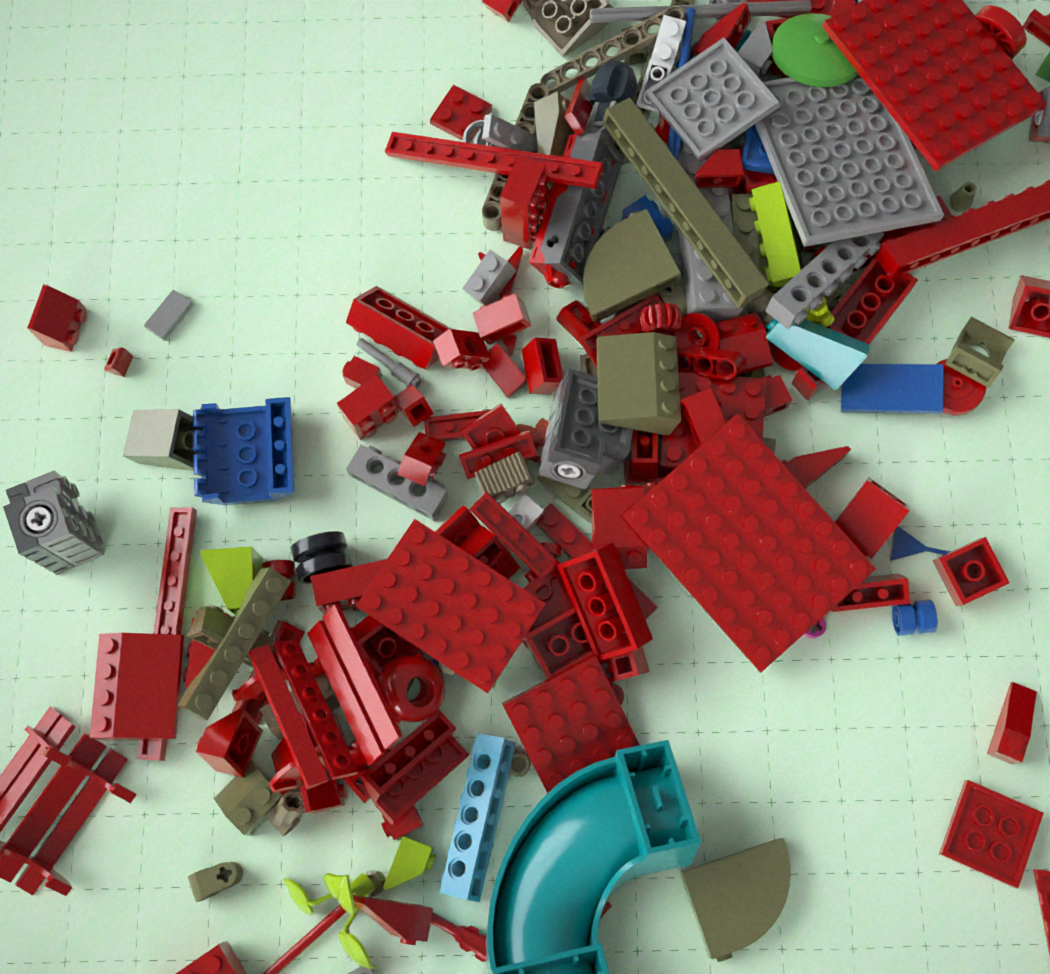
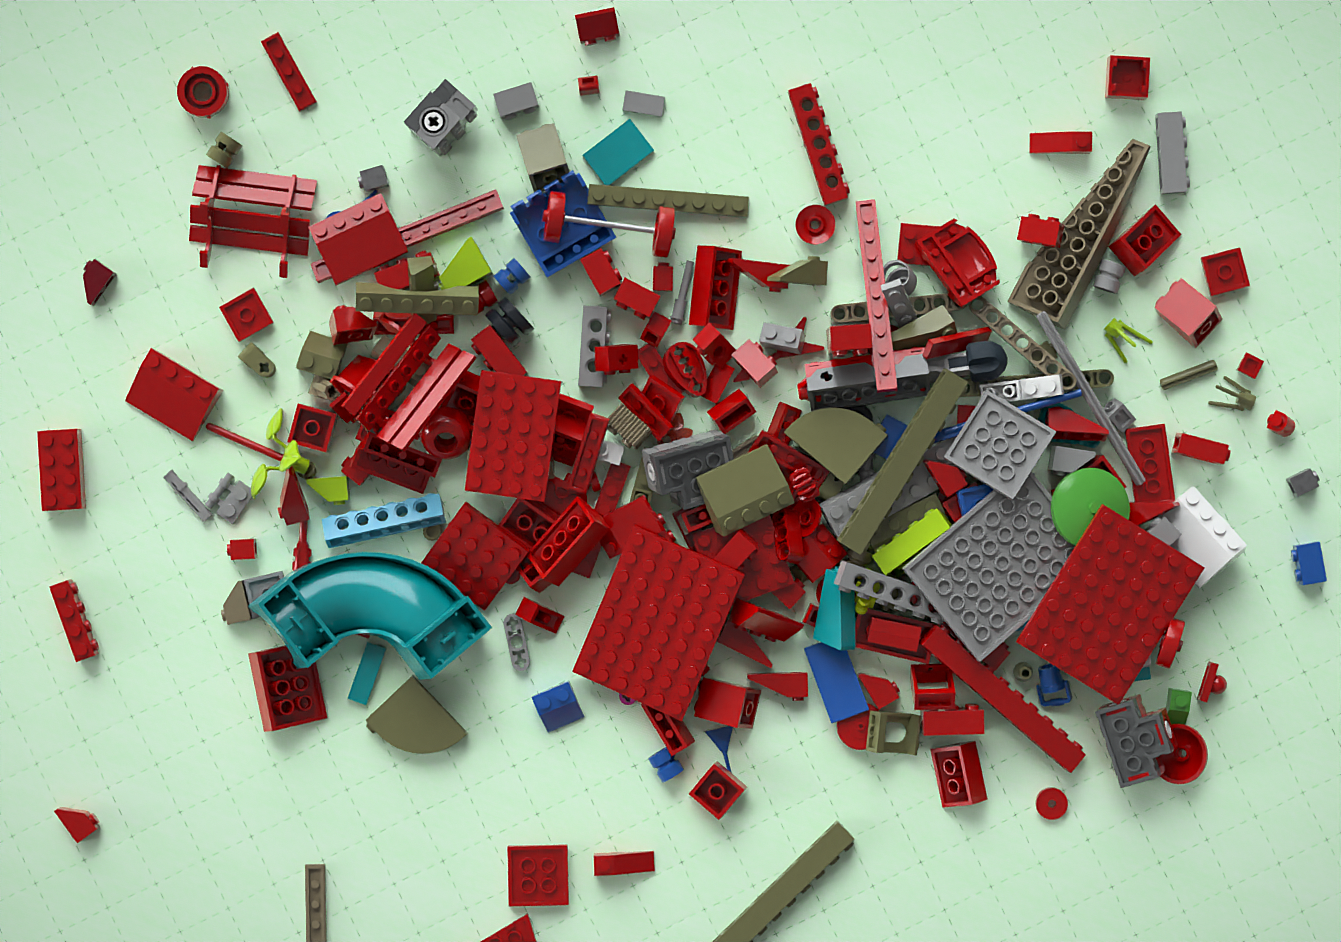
camera: 60 degrees right, 15 degrees up
(82, 638) = (373, 178): none -> flat silver brick
(88, 442) = (516, 100): none -> light grey brick
(153, 866) = (246, 314): none -> red plate
(205, 363) = (618, 152): none -> teal tile
(274, 533) = (517, 272): none -> blue wheel
(281, 335) = (679, 200): none -> olive plate
(309, 347) = (662, 232): none -> red axle
(315, 169) = (797, 97): none -> red brick
(319, 432) = (600, 271): none -> red brick
(325, 848) = (313, 428): none -> red brick
(387, 190) = (823, 217): none -> red dish
(409, 269) = (759, 272): none -> red slope
(432, 227) = (803, 272): none -> olive slope
(469, 383) = (675, 371): none -> red piece
(498, 76) = (959, 261): none -> red slope
(653, 929) = (366, 673): none -> teal tile
(674, 683) = (539, 615): none -> red slope
(715, 724) = (524, 646): none -> light grey beam
(792, 712) = (557, 706): none -> blue slope
(797, 427) = (763, 621): none -> red slope
(870, 297) = (894, 634): none -> red piece
(875, 442) = (785, 683): none -> red slope
(924, 348) = (879, 689): none -> red slope
(965, 277) = (932, 698): none -> red window
(987, 174) = (1051, 682): none -> blue piece
(991, 283) = (956, 721): none -> red brick

